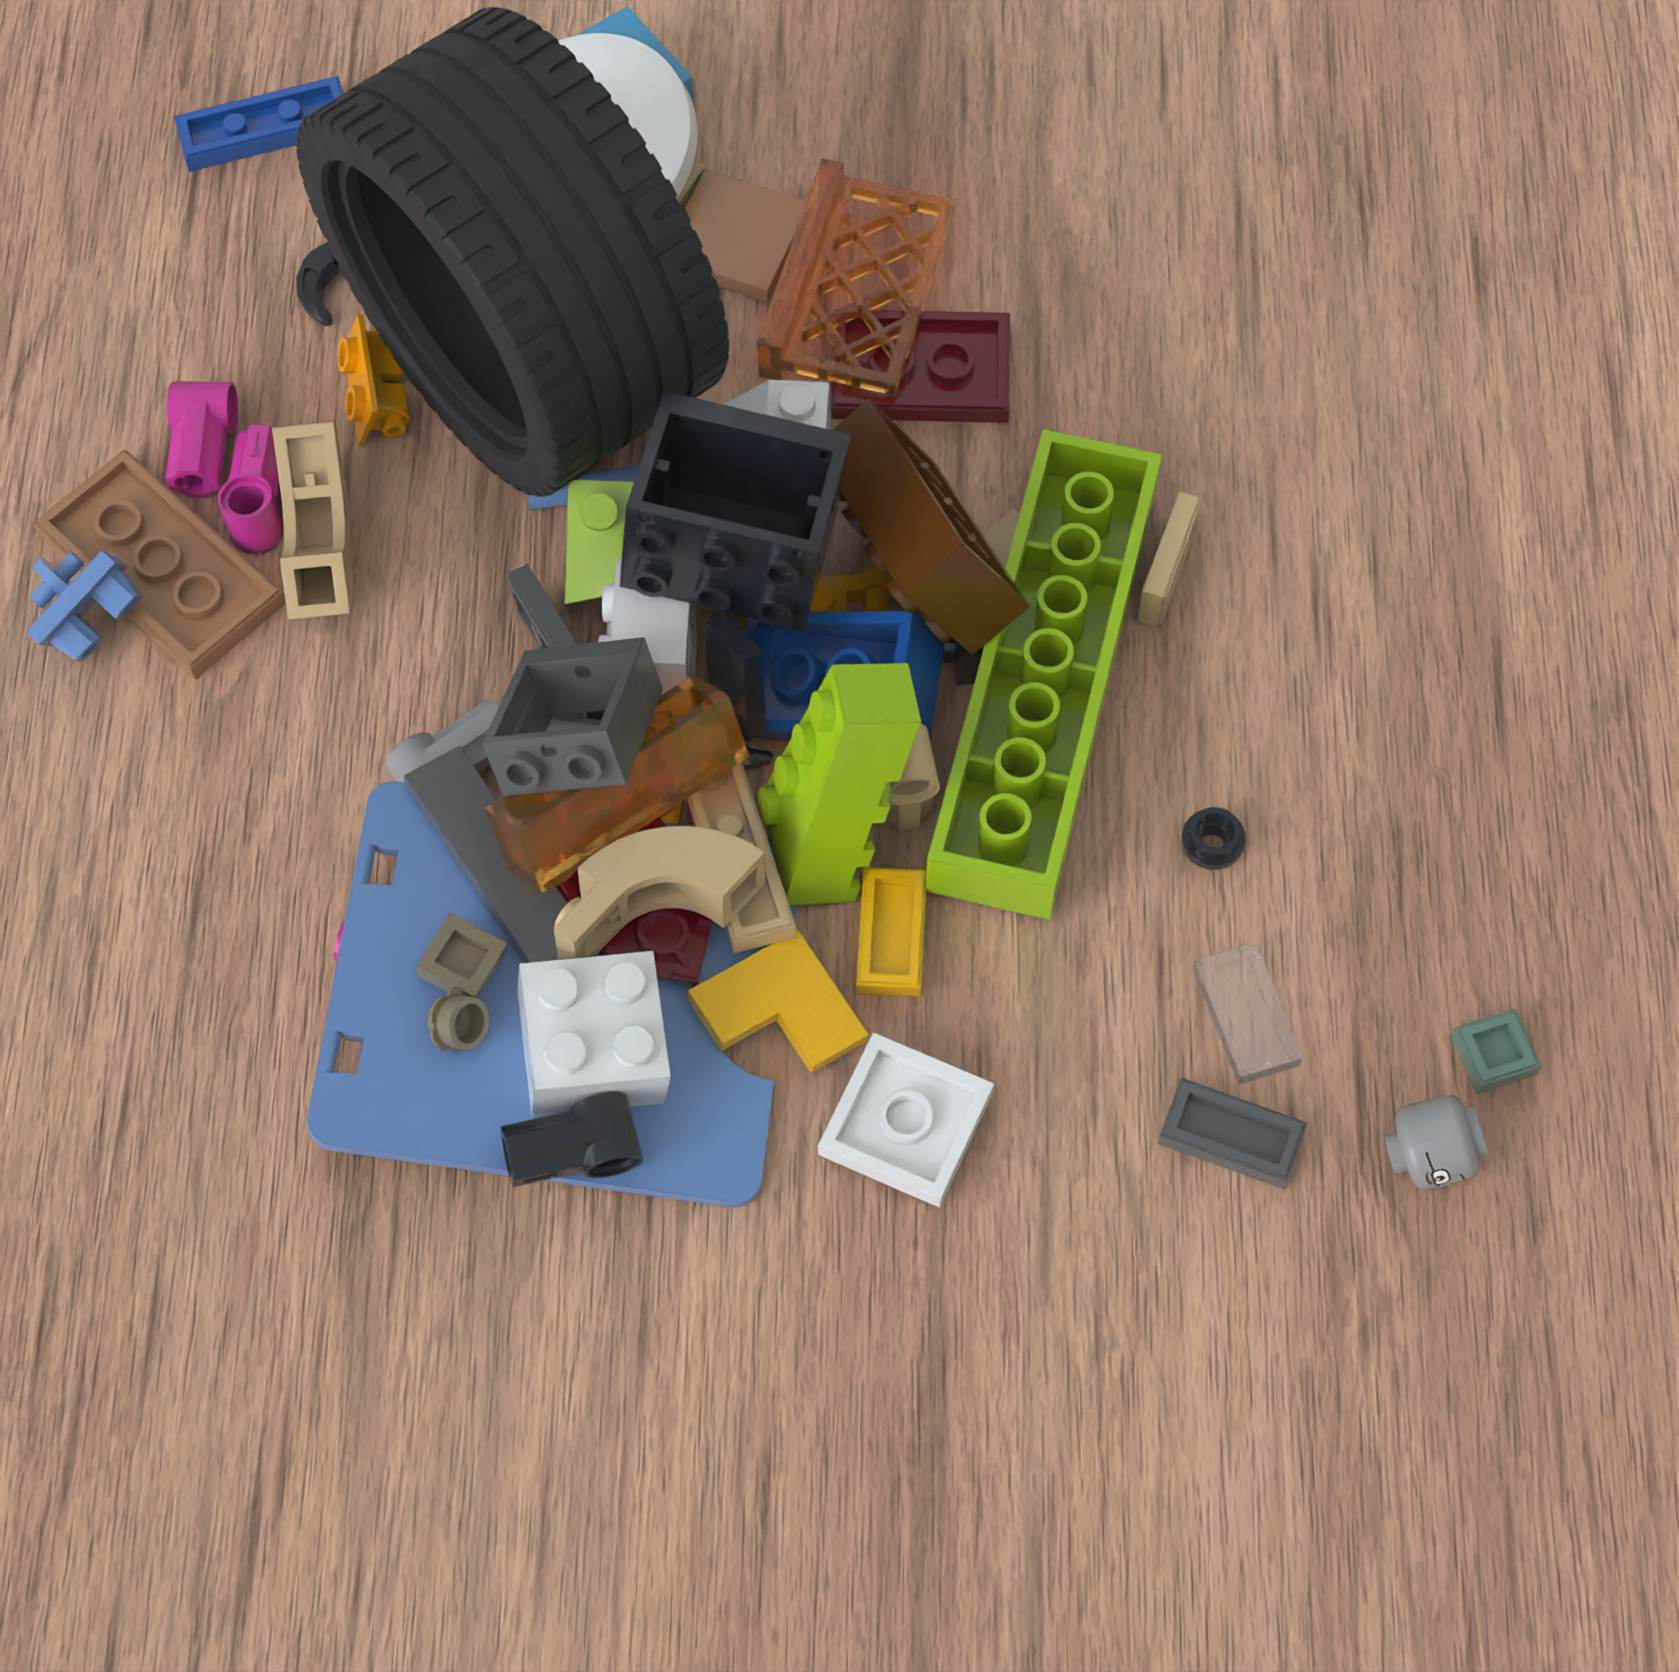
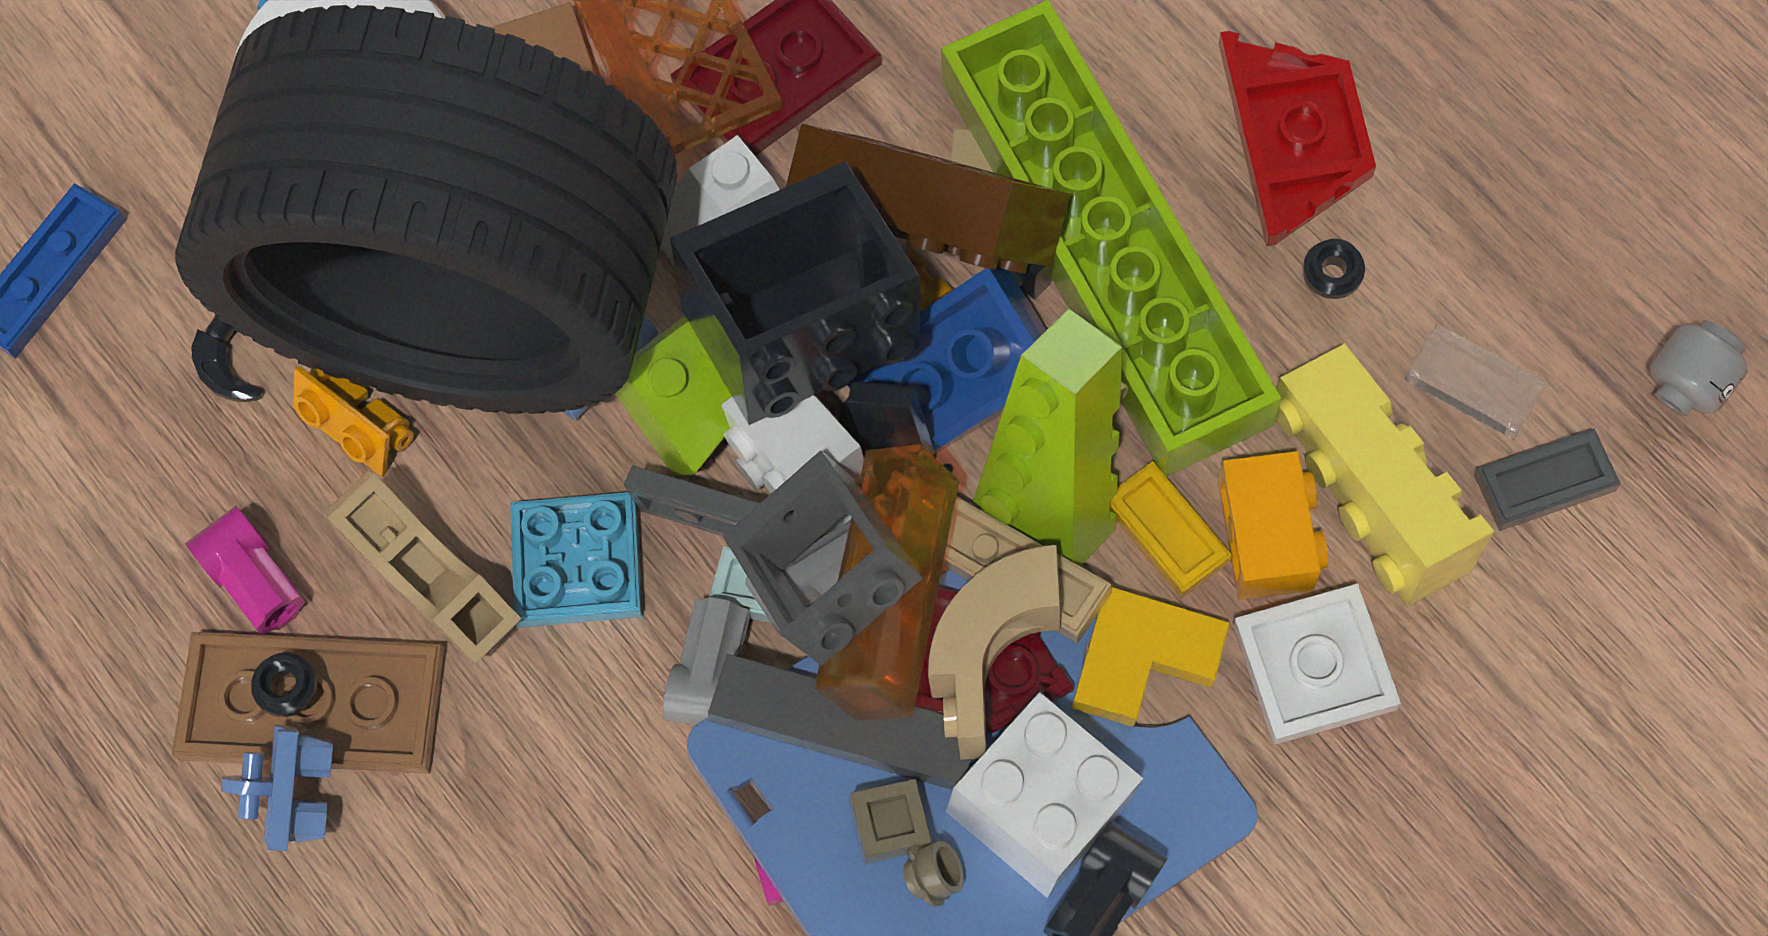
camera: 35 degrees left, 5 degrees up
(144, 516) = (275, 669): none -> black plate
(253, 494) = (337, 576): dark pink piece -> none
(435, 609) = (576, 559): none -> medium azure tile
(969, 987) = (1270, 525): none -> light orange brick
(1088, 1016) = (1379, 477): none -> light yellow wedge
(1169, 559) = (1109, 71): tan tile -> none
(1283, 712) = (1296, 130): none -> red wing
(1495, 1051) = (1668, 268): sand green tile -> none

